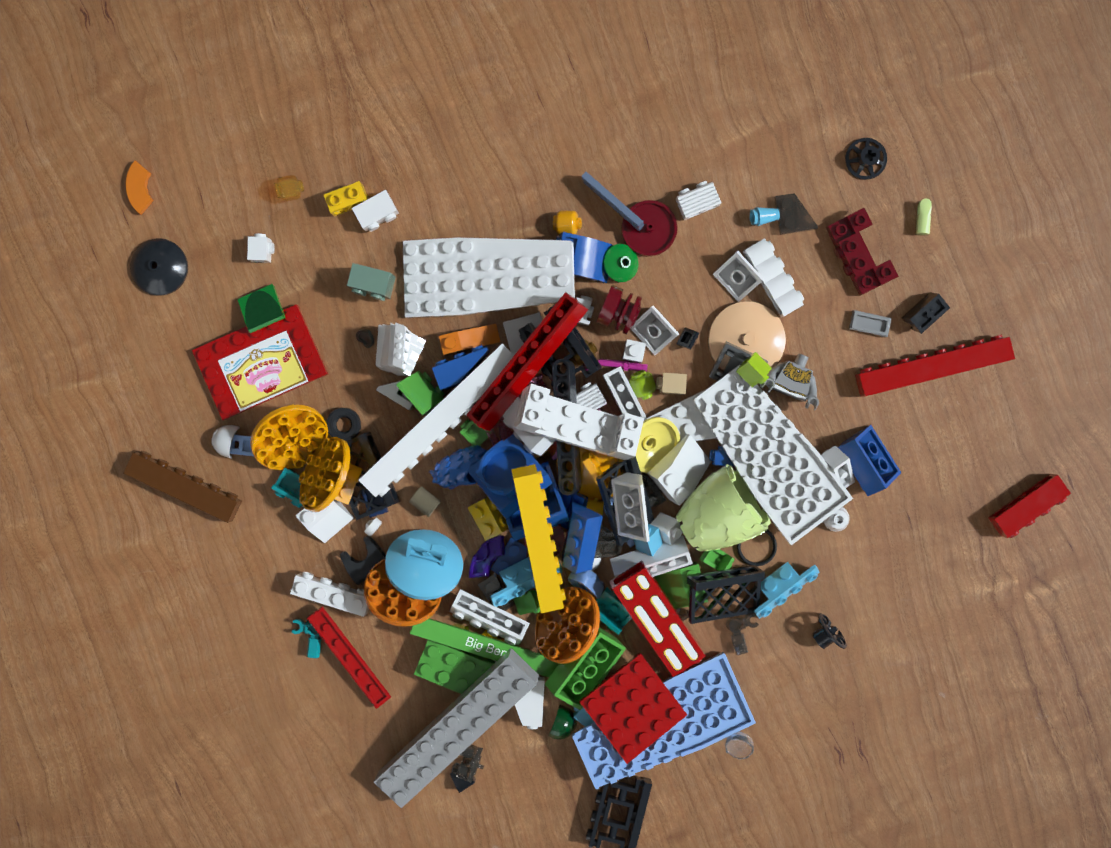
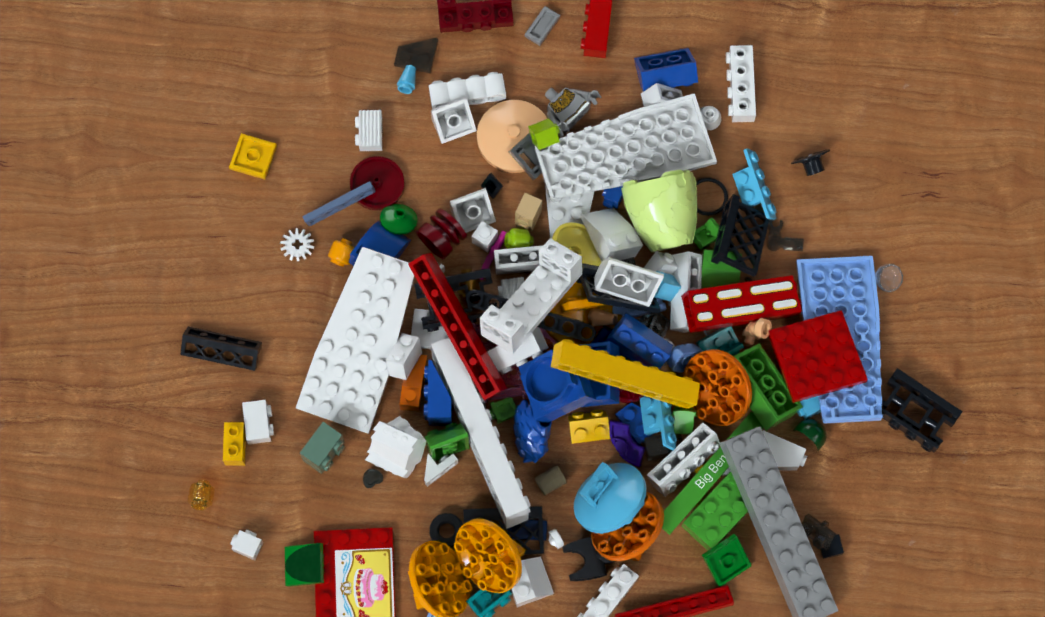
camera: 70 degrees left, 15 degrees down
(411, 689) = (726, 560): none -> green tile
(436, 146) = (205, 338): none -> black fence
(486, 321) = (404, 356): none -> white brick
(556, 184) = (302, 249): none -> white gear
(591, 494) = (600, 317): none -> medium nougat cone
(631, 100) = (253, 156): none -> yellow tile
(639, 644) = (757, 330): none -> light nougat arm
(883, 538) = (741, 83): none -> white brick

